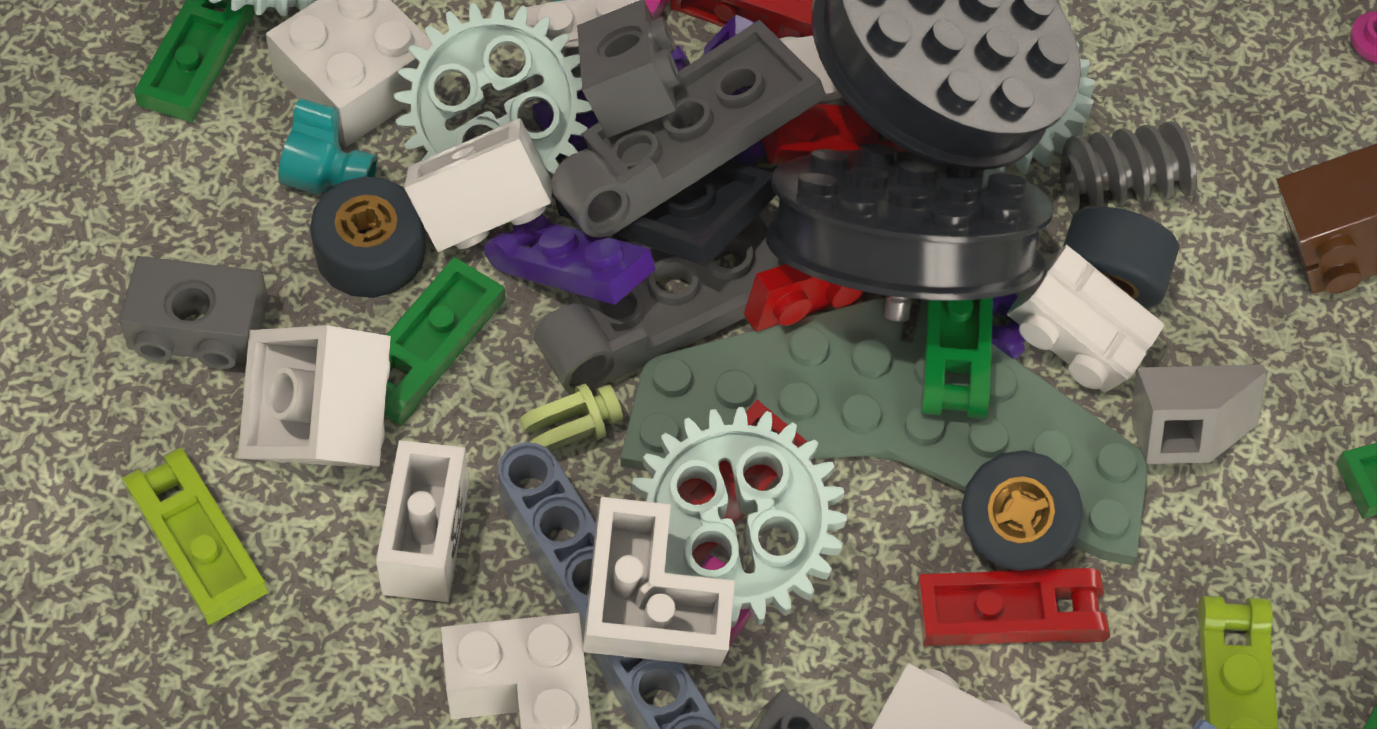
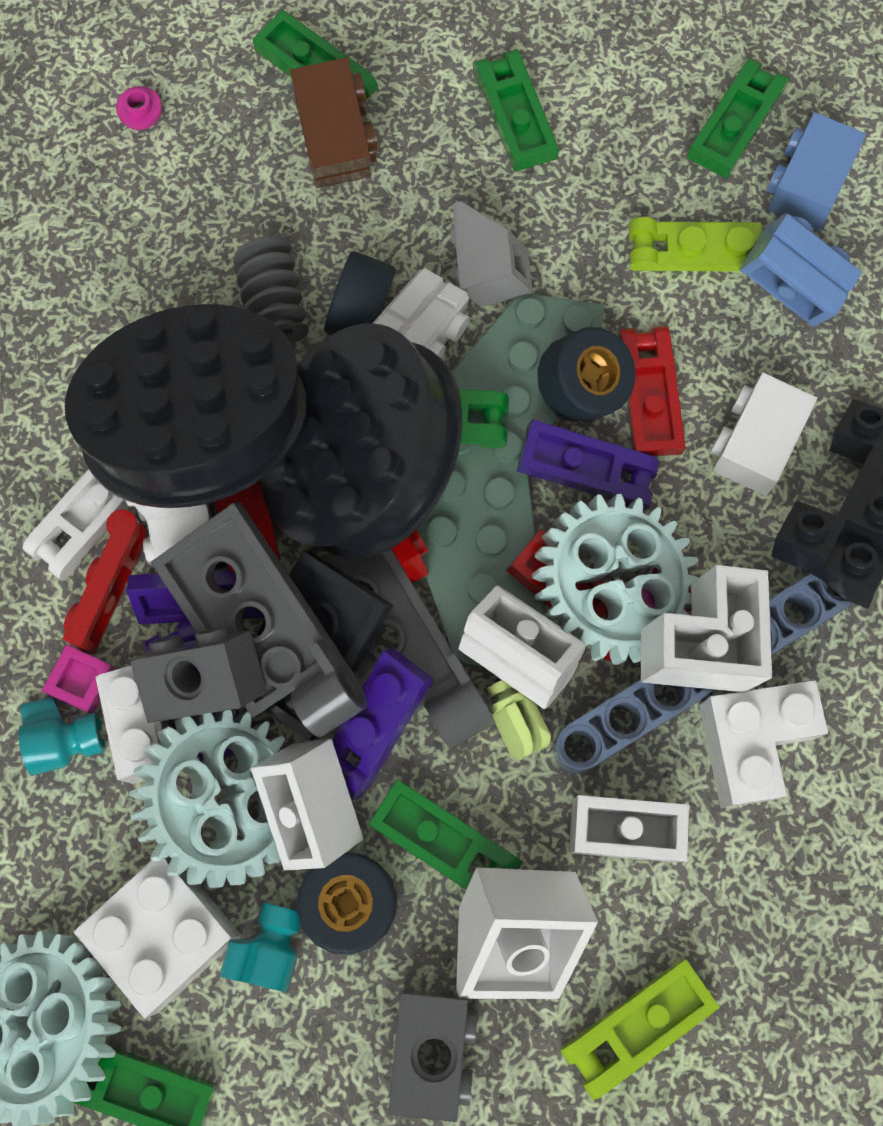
camera: 85 degrees left, 15 degrees up
(649, 396) = (521, 646): none -> white brick
(899, 514) = (586, 463): none -> dark purple plate

